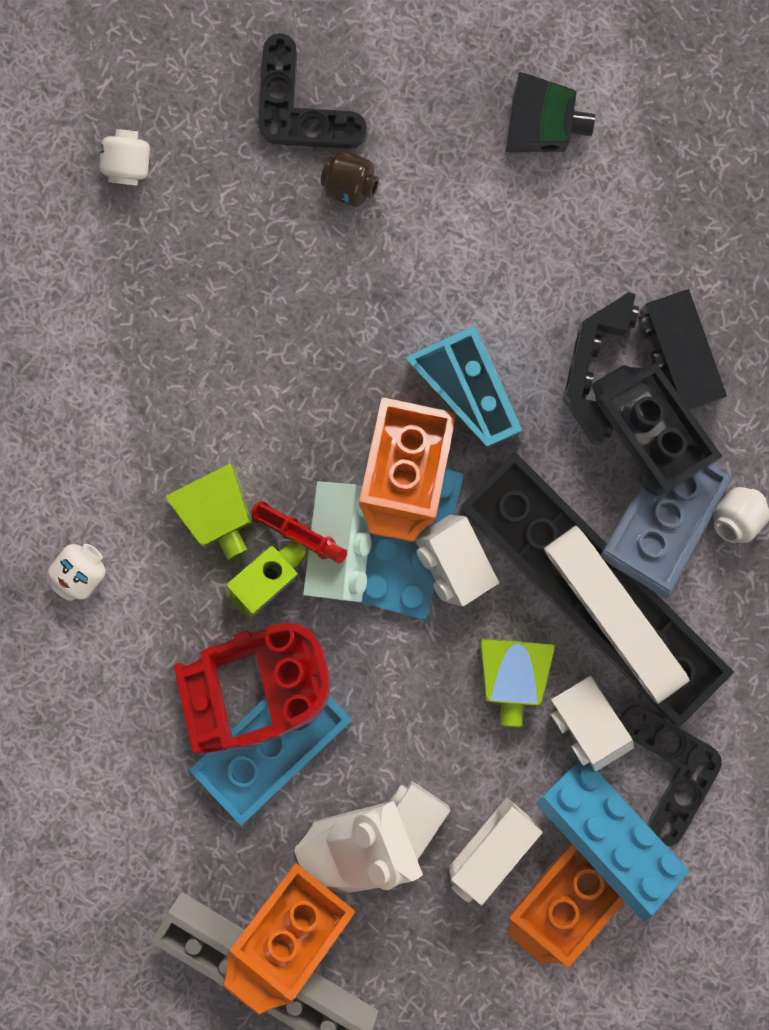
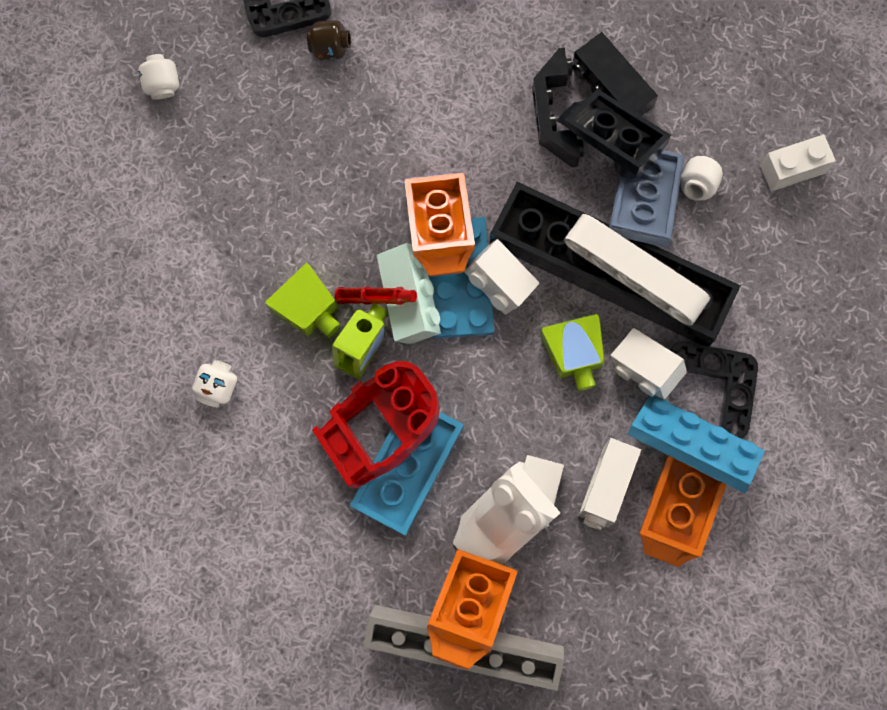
camera: 15 degrees left, 10 degrees down
(469, 383) = (465, 148): medium azure wedge -> none

